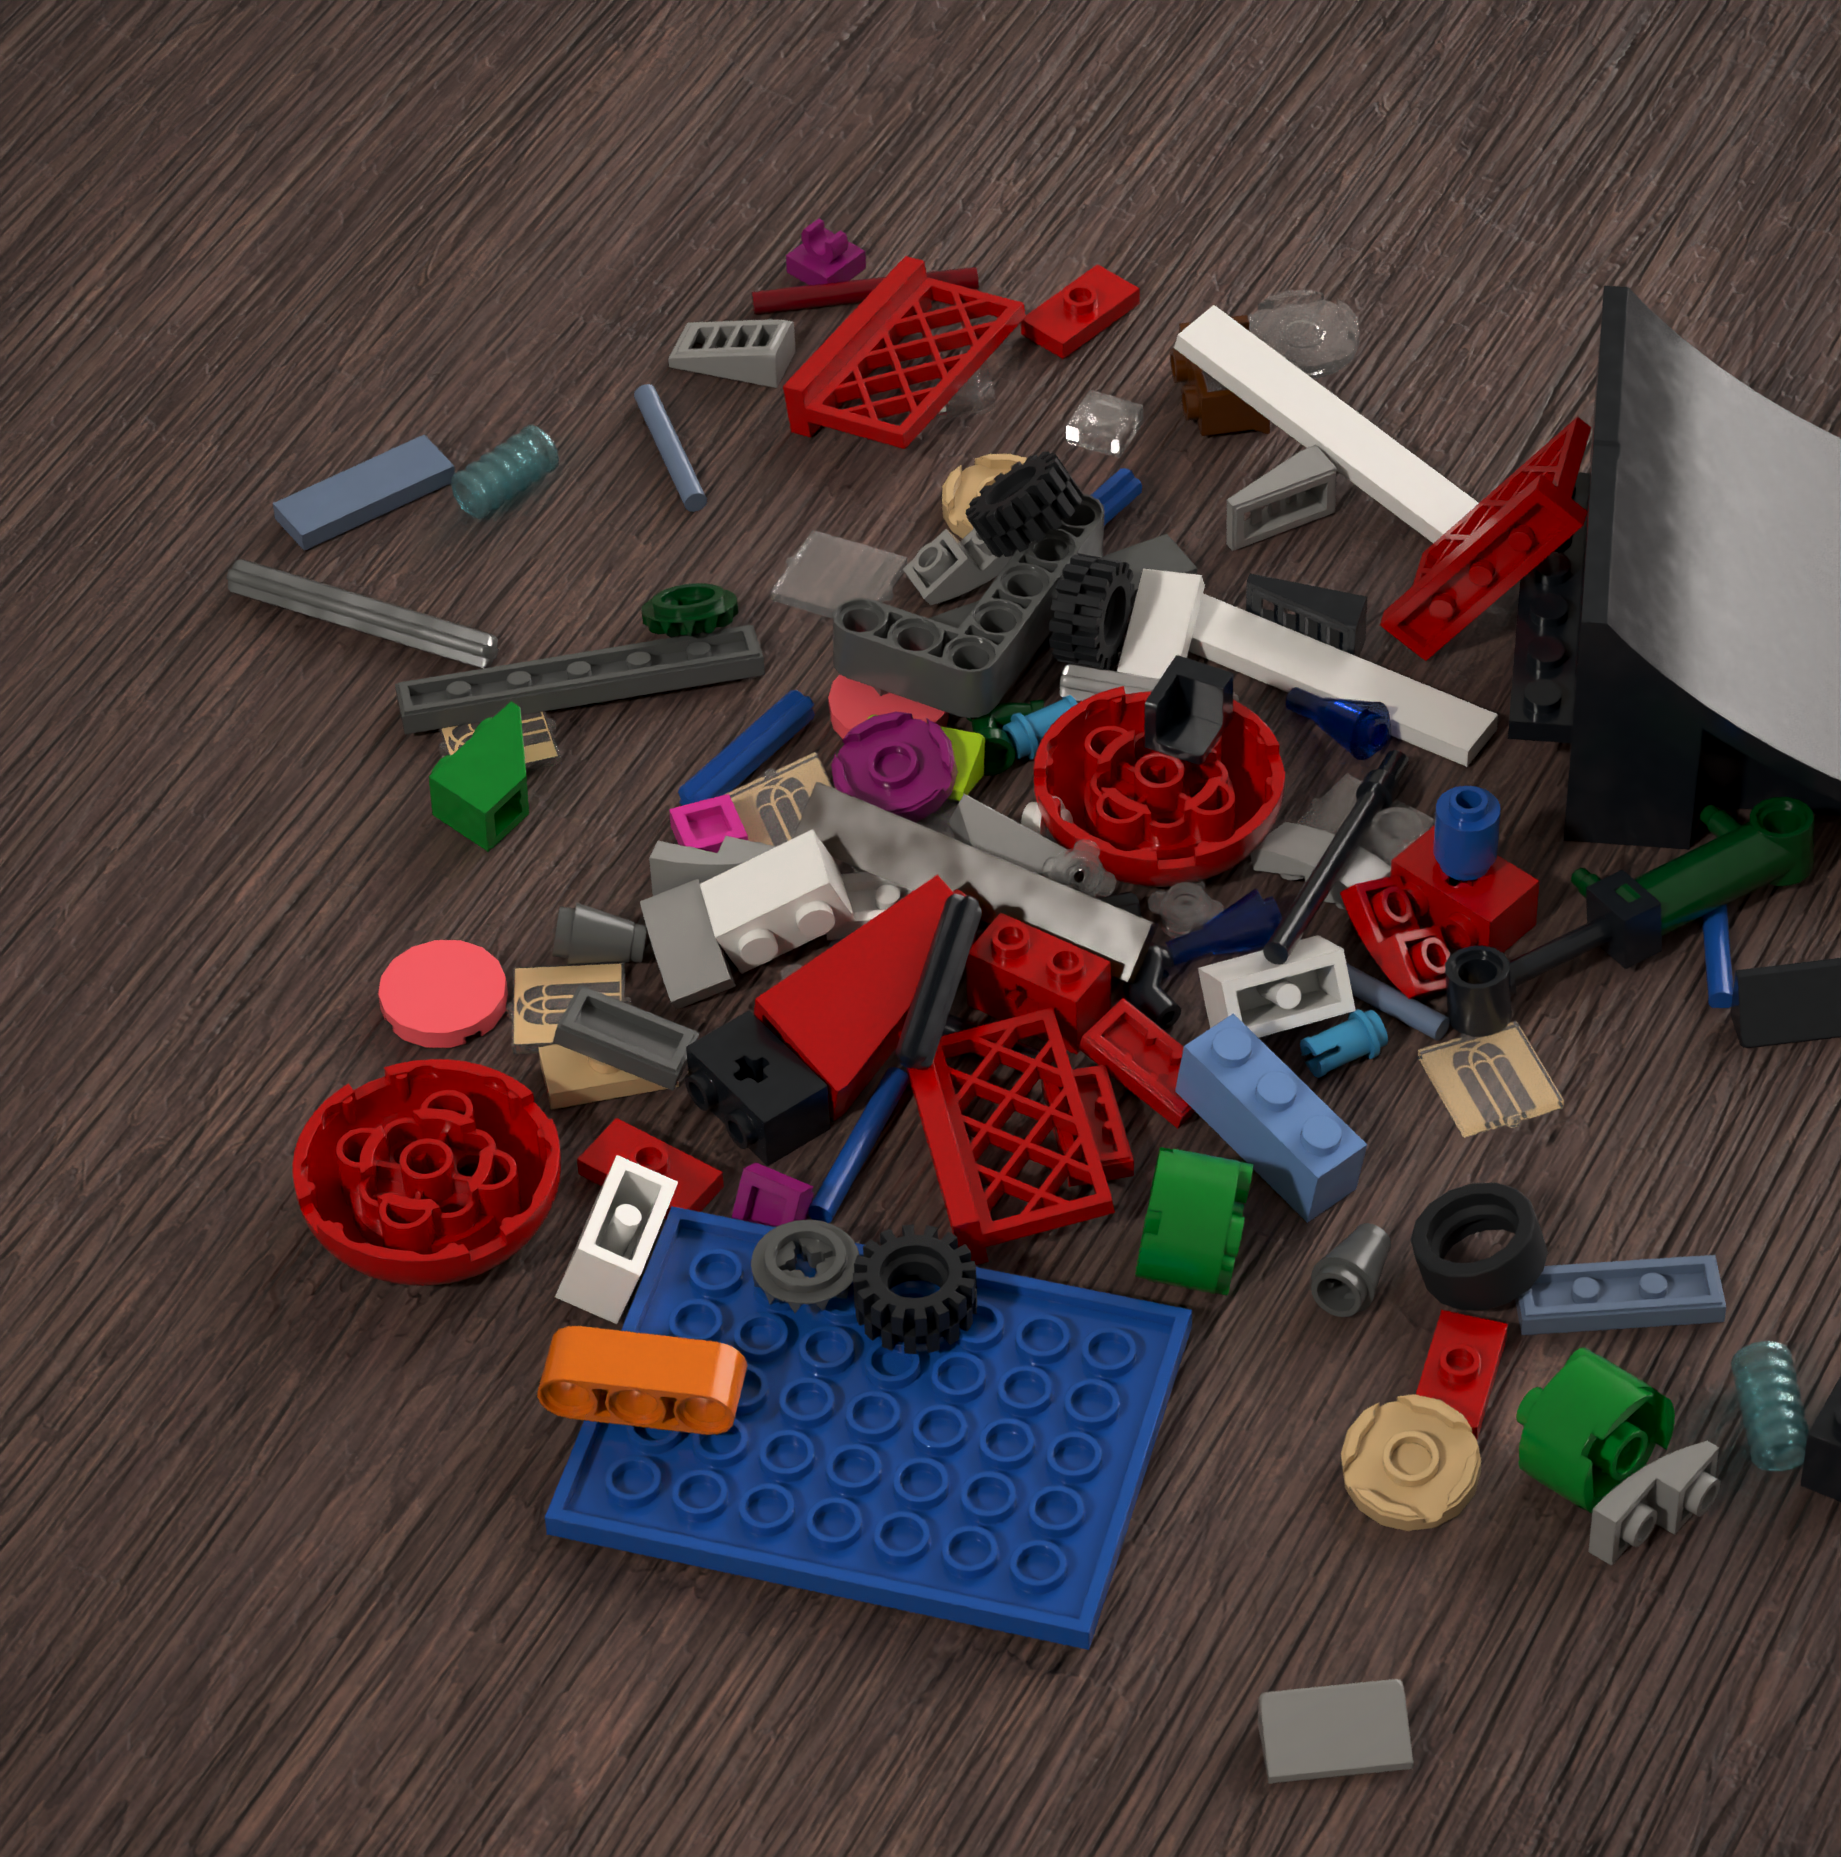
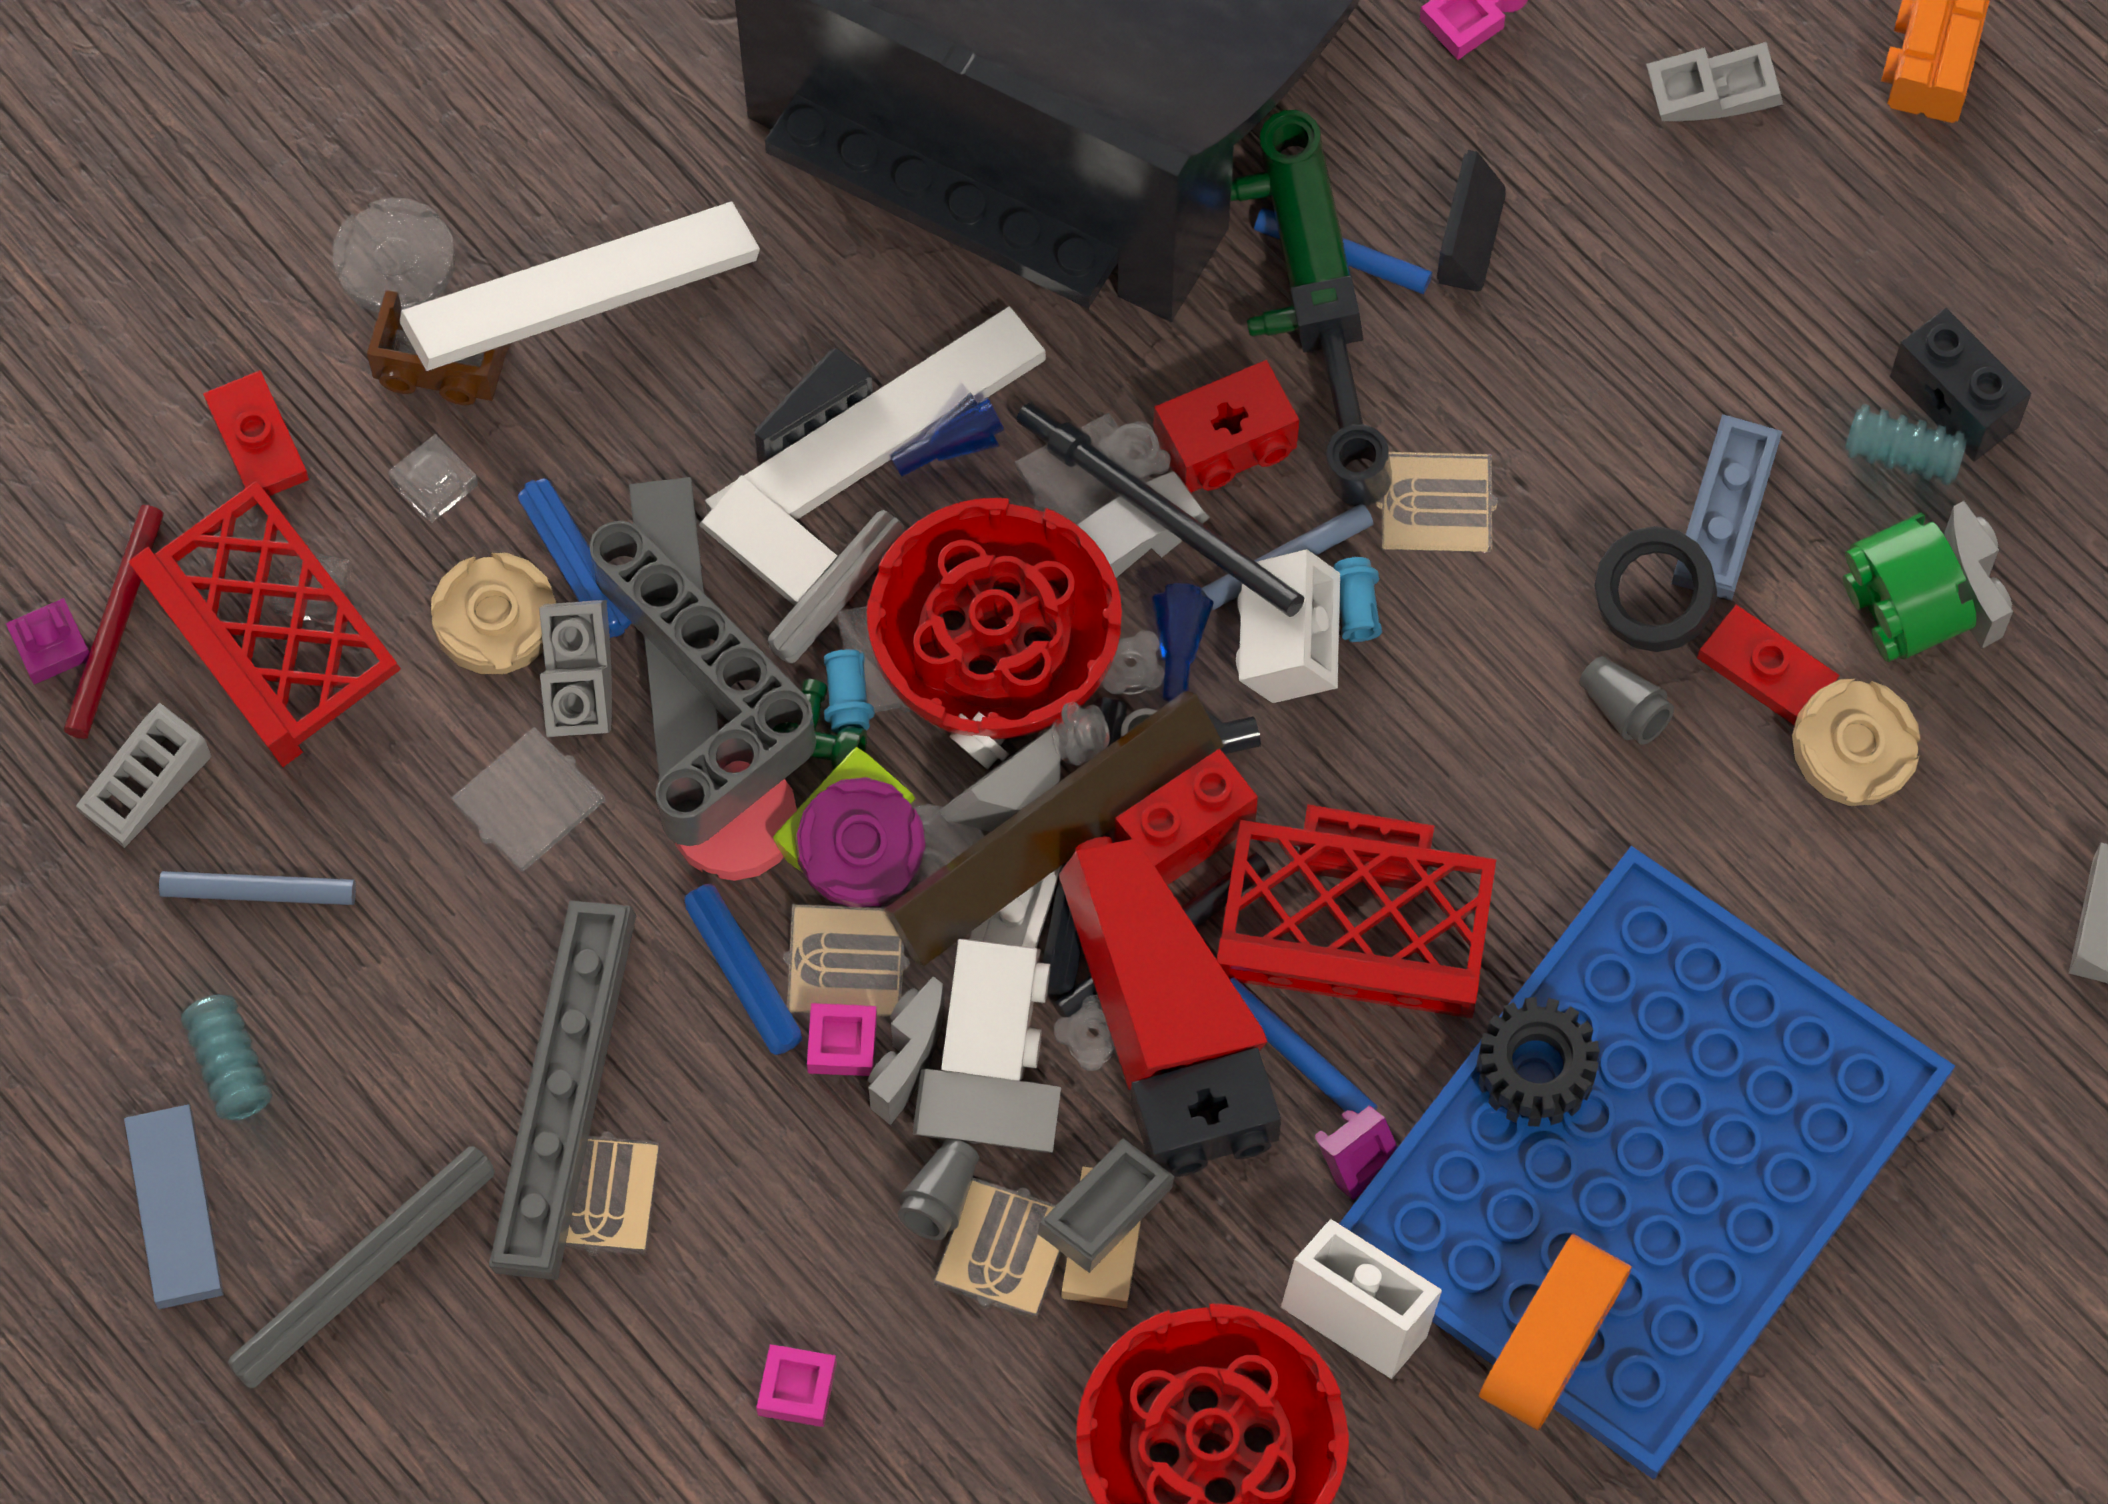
camera: 70 degrees left, 20 degrees up
(370, 903) = (796, 1385): none -> dark pink plate
(443, 993) = (940, 1357): coral tile -> none
(484, 782) = (690, 1214): green slope -> none
(689, 610) = (510, 940): dark green gear -> none
(696, 1180) = (1253, 1245): red plate -> none
(820, 1245) = (1488, 1127): dark grey gear -> none
(938, 982) = (1201, 901): black axle -> none
(1024, 504) = (576, 587): black tyre -> none
(1091, 611) = (747, 587): black tyre -> none
(1139, 1058) = (1316, 767): red plate -> none
(1188, 710) = (951, 556): black panel -> none
(1193, 1221) = (1545, 804): green brick -> none
(1270, 1117) = (1446, 692): medium blue brick -> none
(1295, 495) = (632, 343): light grey slope -> none
(1388, 927) = (1273, 504): red slope -> none
(1466, 832) = (1218, 388): blue brick -> none
(1492, 546) = (900, 217): red fence -> none

